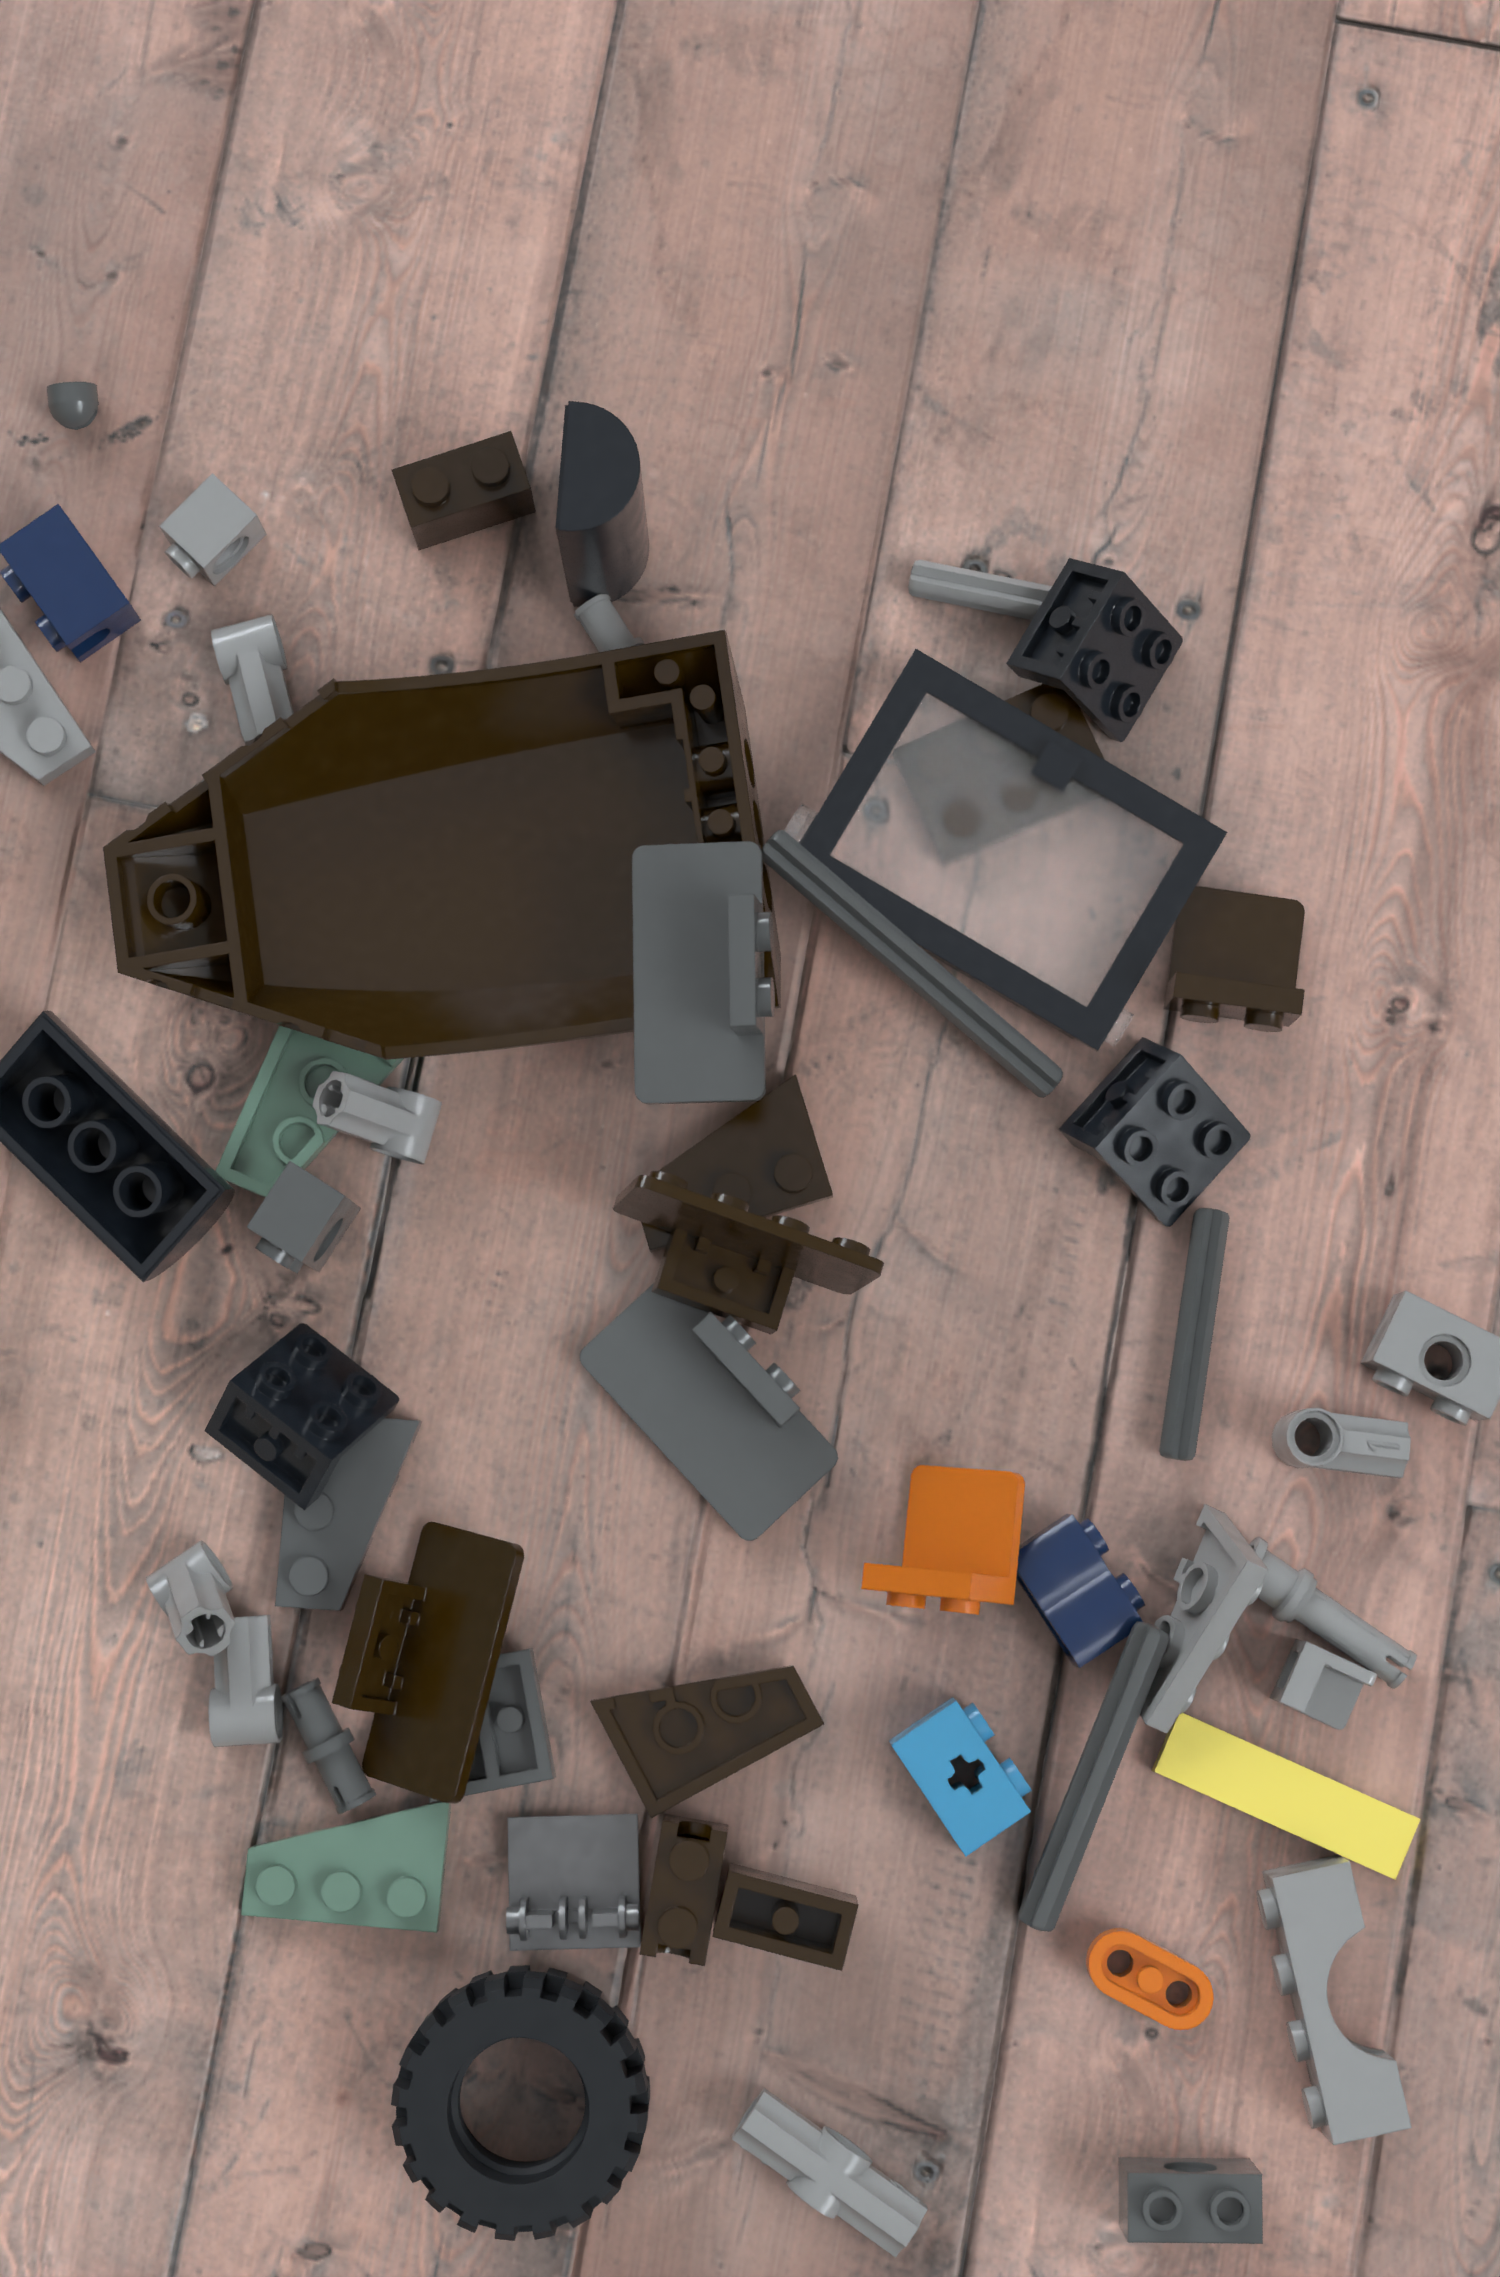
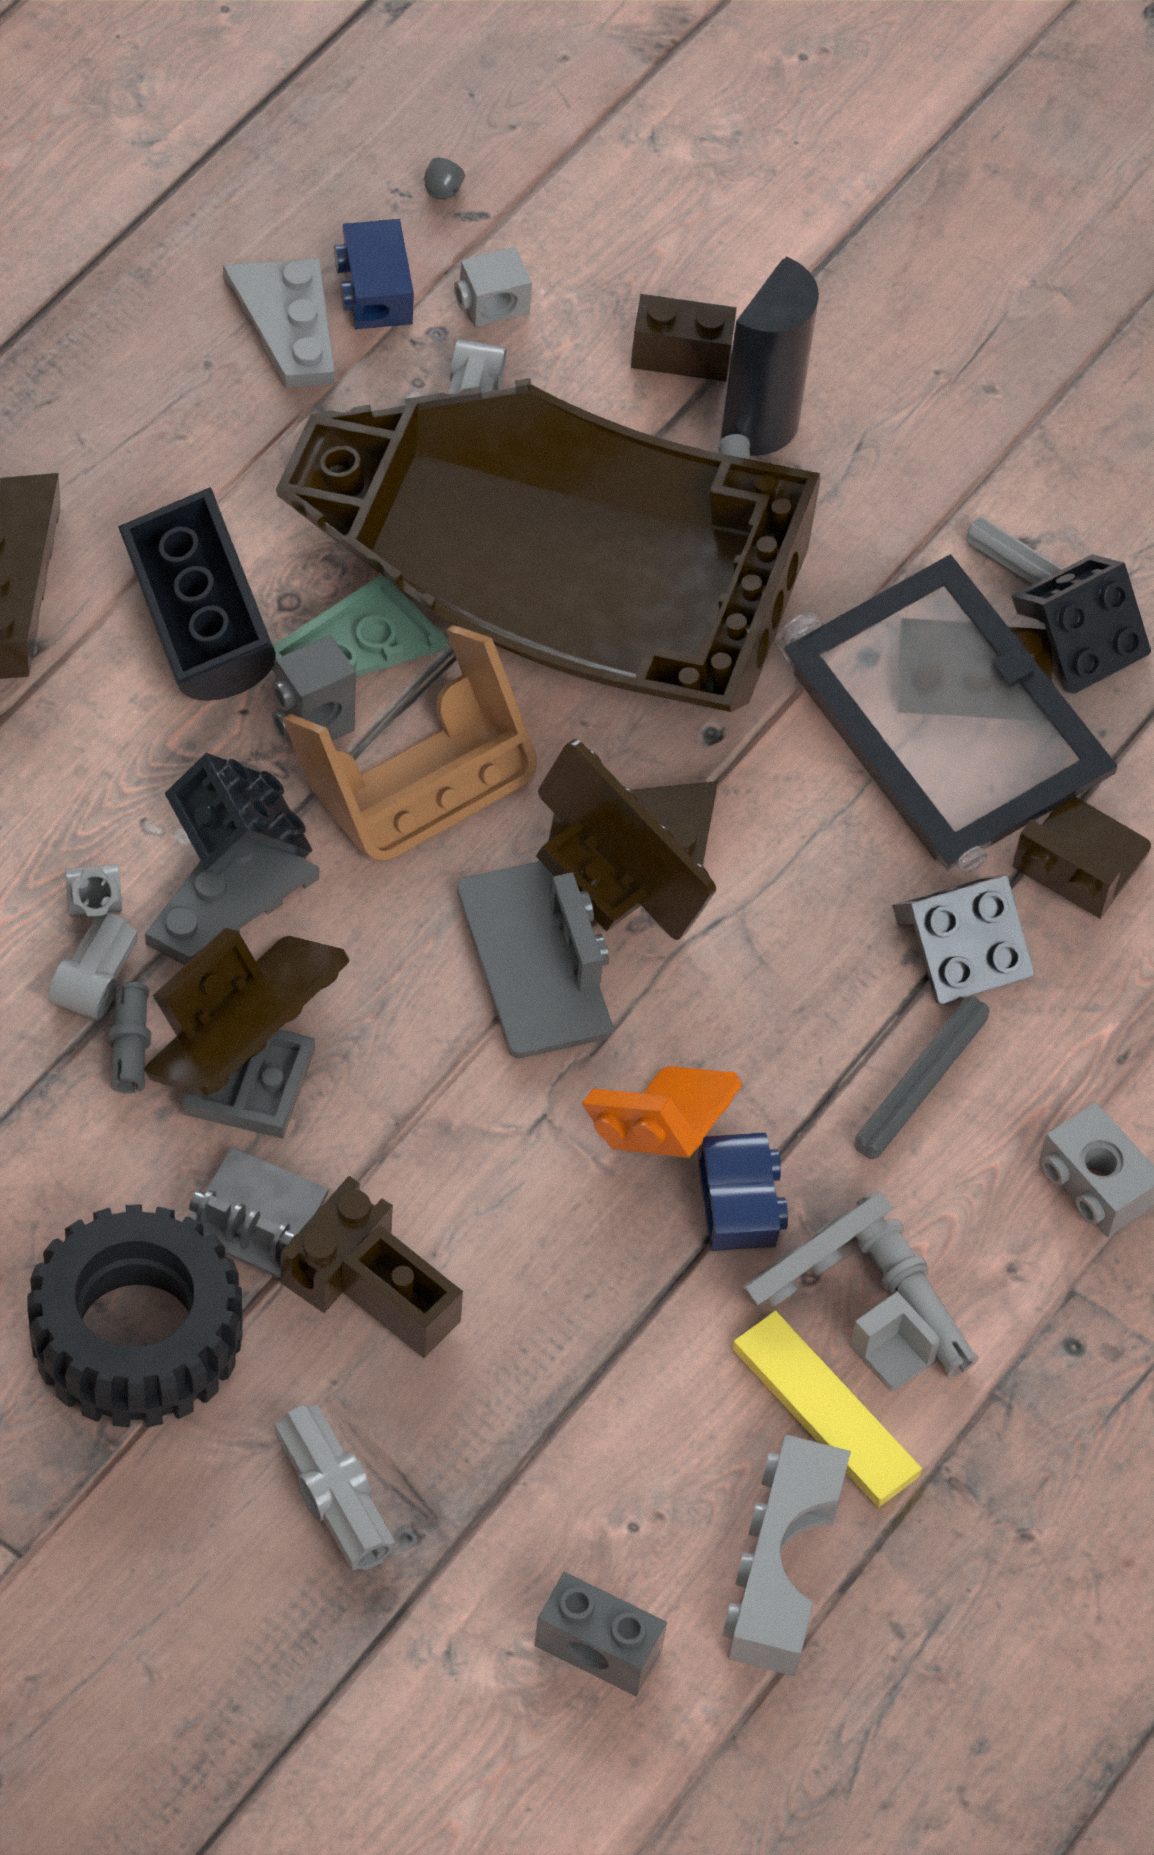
camera: 20 degrees right, 25 degrees down
(356, 1873) = (98, 1131): sand green wing -> none
(389, 1118) = (411, 673): light grey piece -> none
(480, 1238) = (437, 781): none -> medium nougat windscreen
(700, 973) = (684, 658): dark grey bracket -> none
(704, 1730) = (412, 1158): dark brown wing -> none
(911, 963) = (841, 745): dark grey axle -> none
(968, 1814) = (583, 1299): dark azure brick -> none
(1093, 1776) = (685, 1315): dark grey axle -> none
(1148, 1977) = (656, 1478): orange plate -> none
(1346, 1443) = (997, 1191): light grey piece -> none

